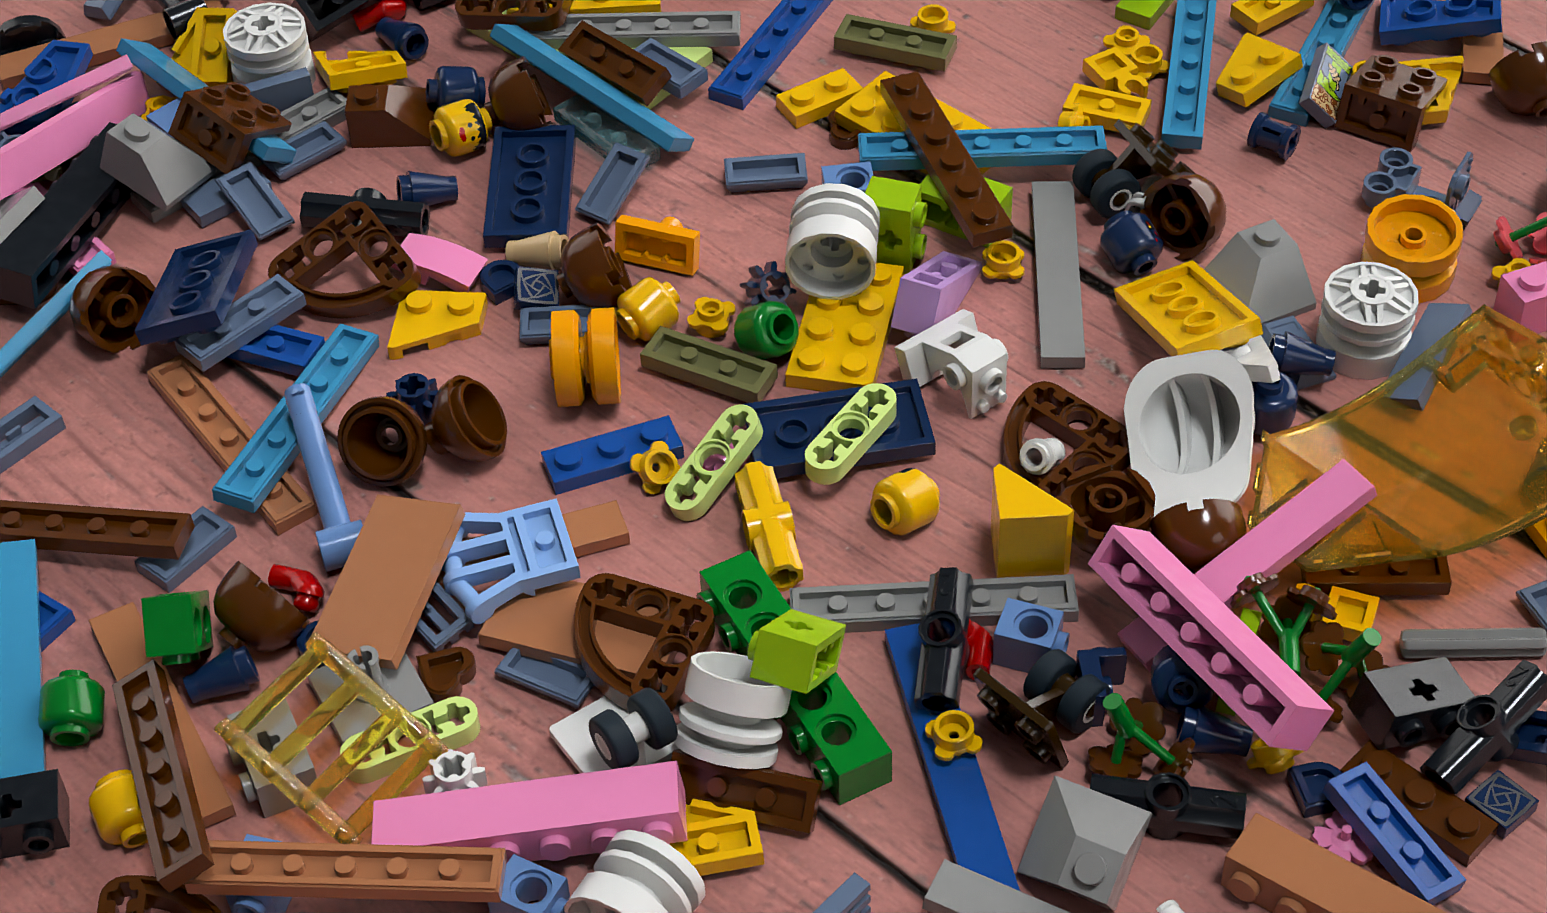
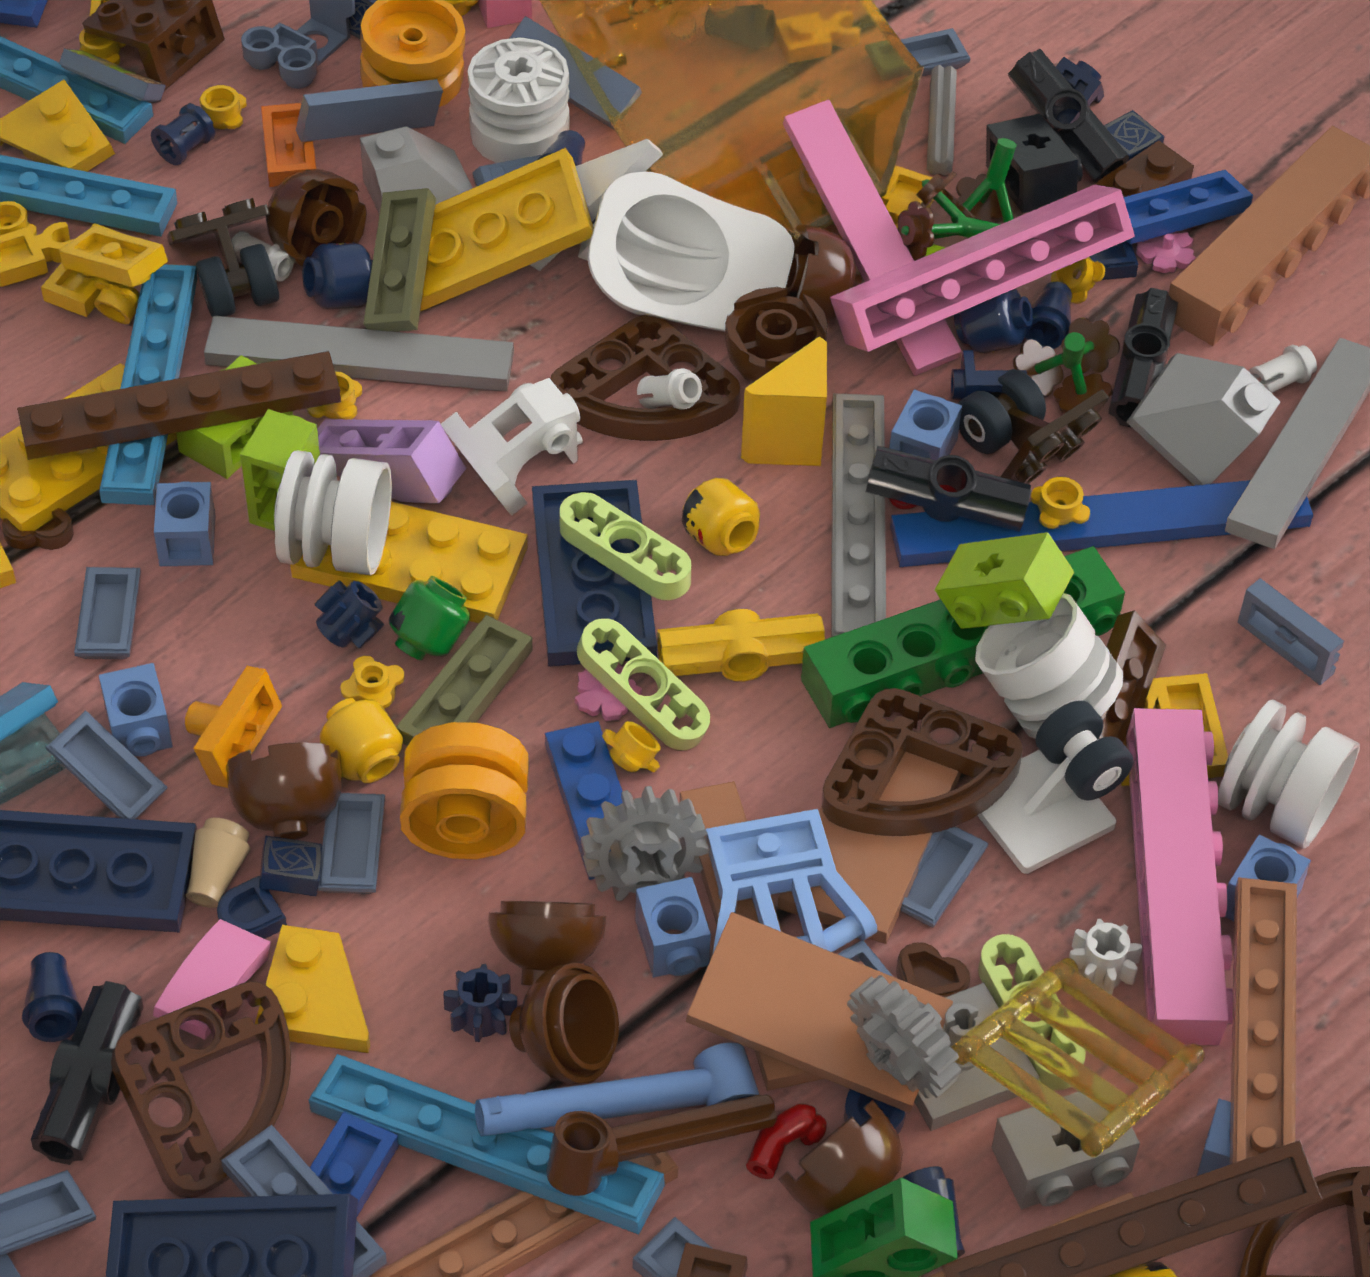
camera: 90 degrees left, 5 degrees up
(263, 456) = (589, 1149): none -> reddish brown axle
(326, 598) = (904, 1036): none -> light grey gear
(481, 492) = (672, 907): none -> medium blue brick
(539, 459) = (643, 842): none -> light grey gear
(667, 191) = (136, 709): none -> medium blue brick
(1094, 101) = (113, 256): none -> yellow plate
(1143, 266) = (400, 260): none -> olive plate
(1283, 198) = (282, 144): none -> orange plate
(1316, 155) = (223, 106): none -> yellow plate
(1320, 222) = (368, 110): none -> sand blue tile

